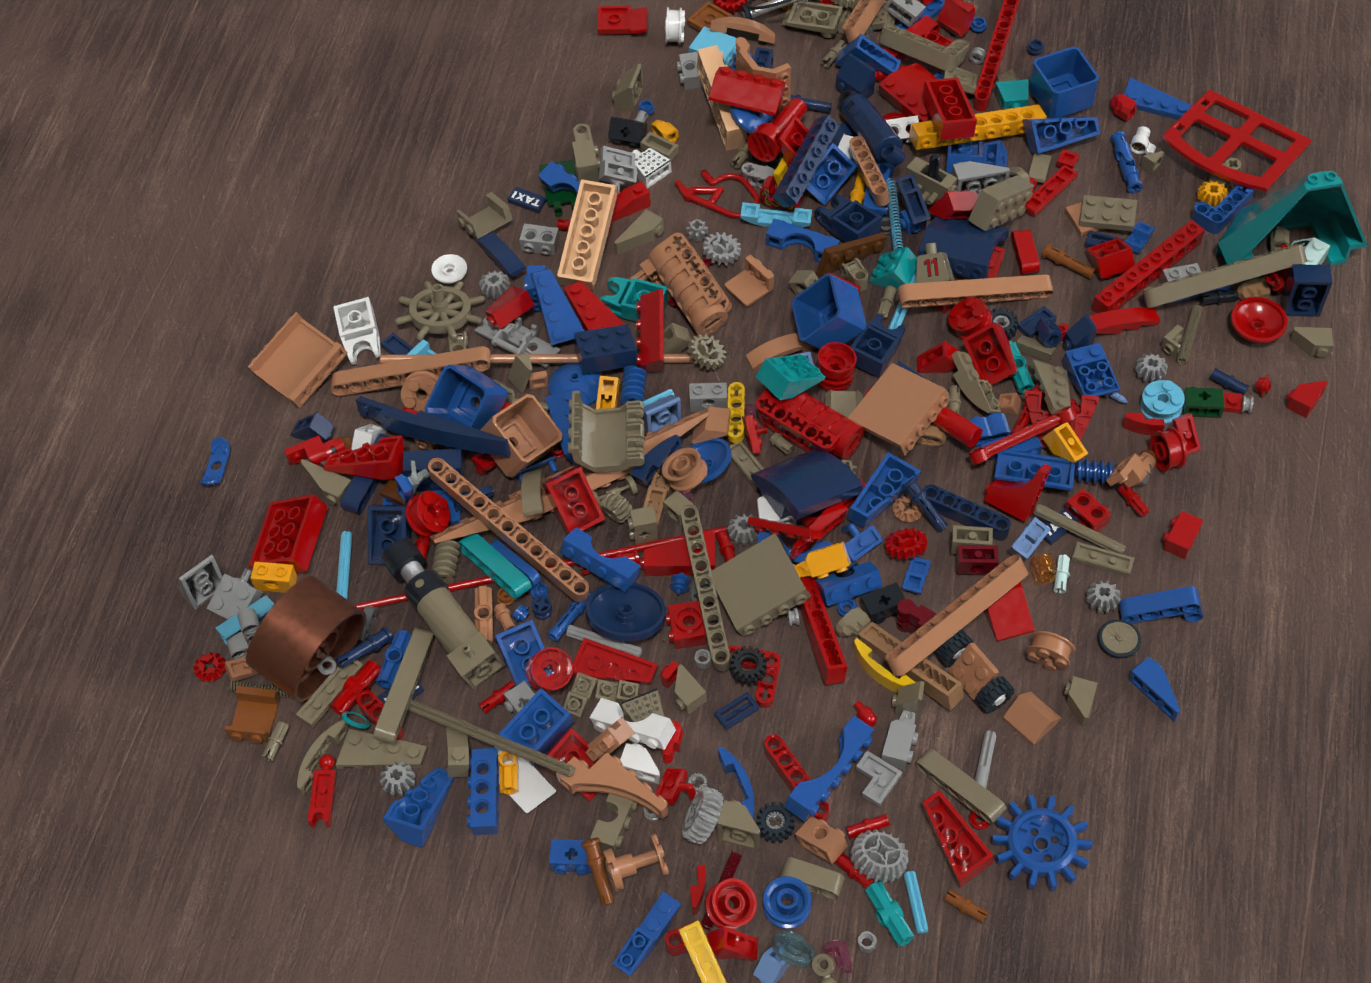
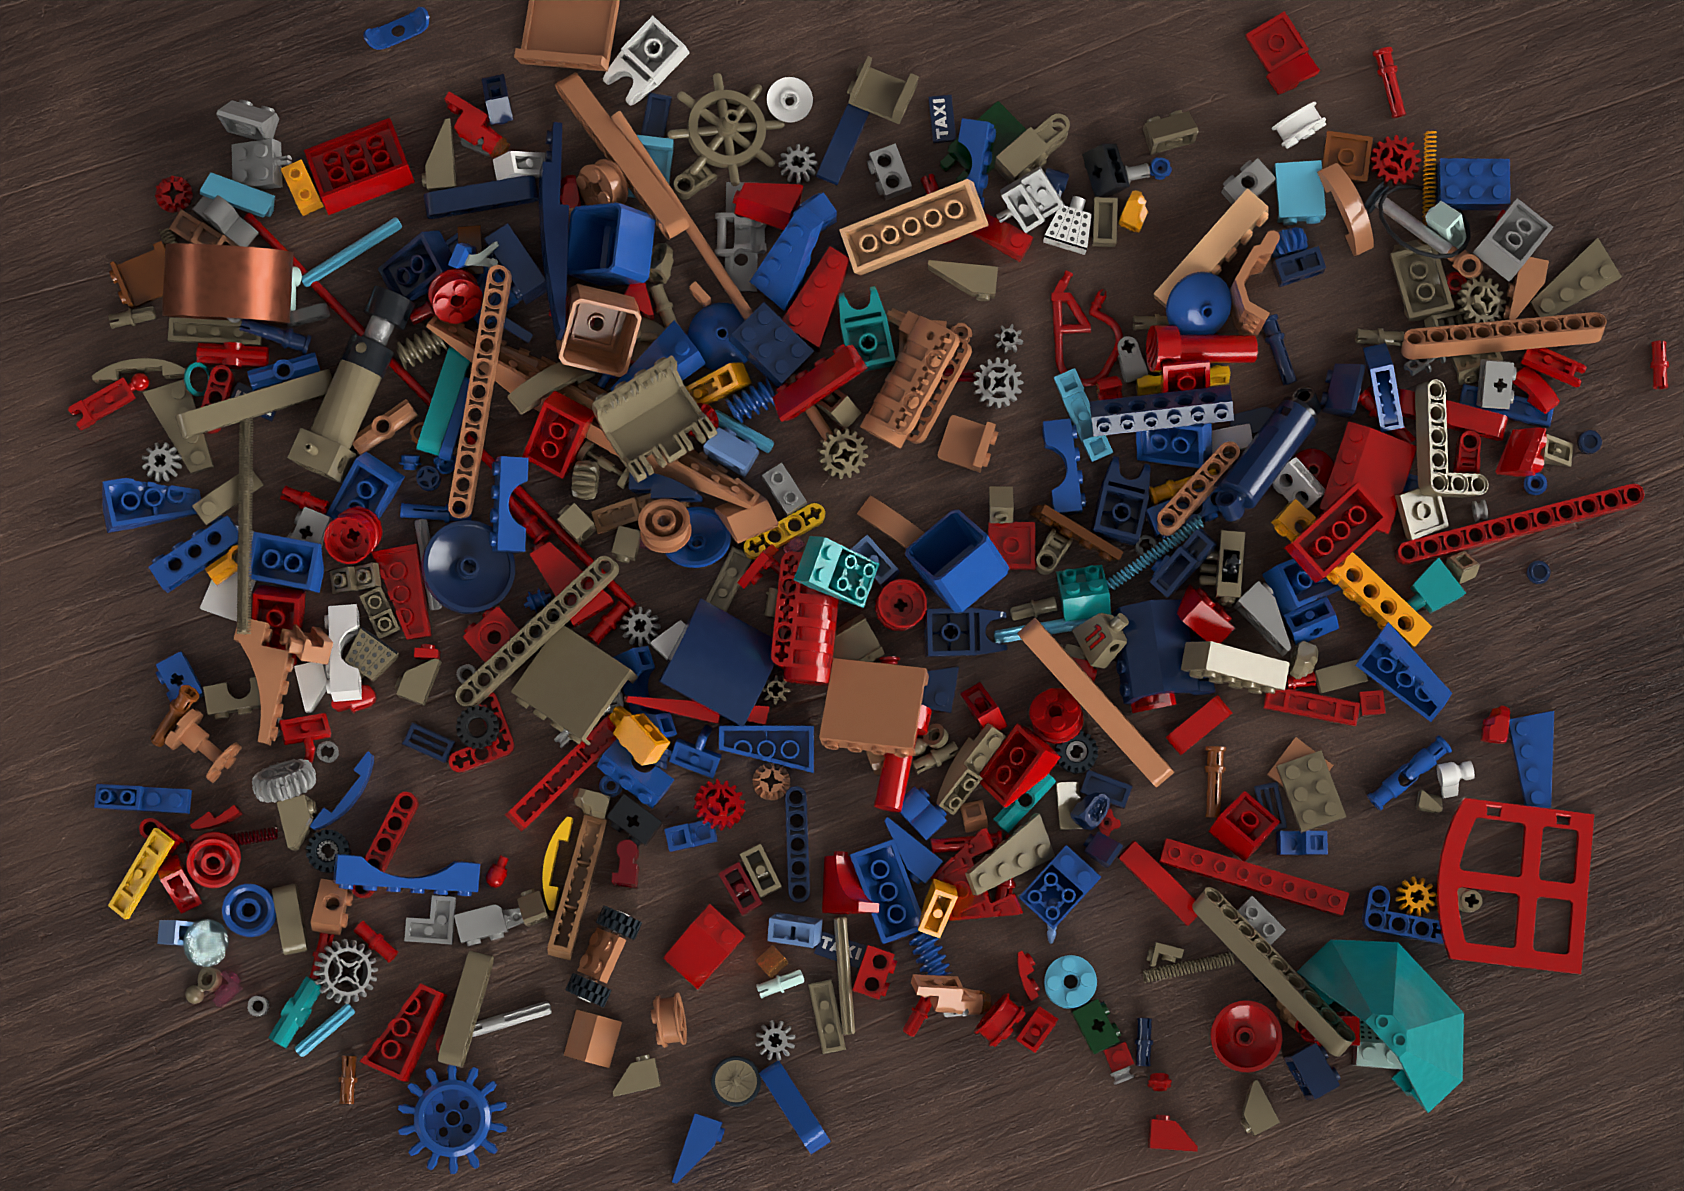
camera: 55 degrees right, 25 degrees up
(375, 461) = (486, 193): red wedge -> none
(503, 615) = (395, 448): nougat pin -> none
(520, 372) = (692, 273): dark tan slope -> none
(747, 90) = (1207, 288): red slope -> none
(790, 530) = (643, 675): red plate -> none
(920, 494) = (778, 789): dark blue pin -> none
(956, 615) = (645, 907): nougat beam -> none
(983, 453) = (962, 889): red piece -> none
(1063, 82) = (1494, 630): blue plate -> none
(1151, 368) = (1103, 949): light grey gear -> none
(1183, 534) = (902, 1085): red brick -> none

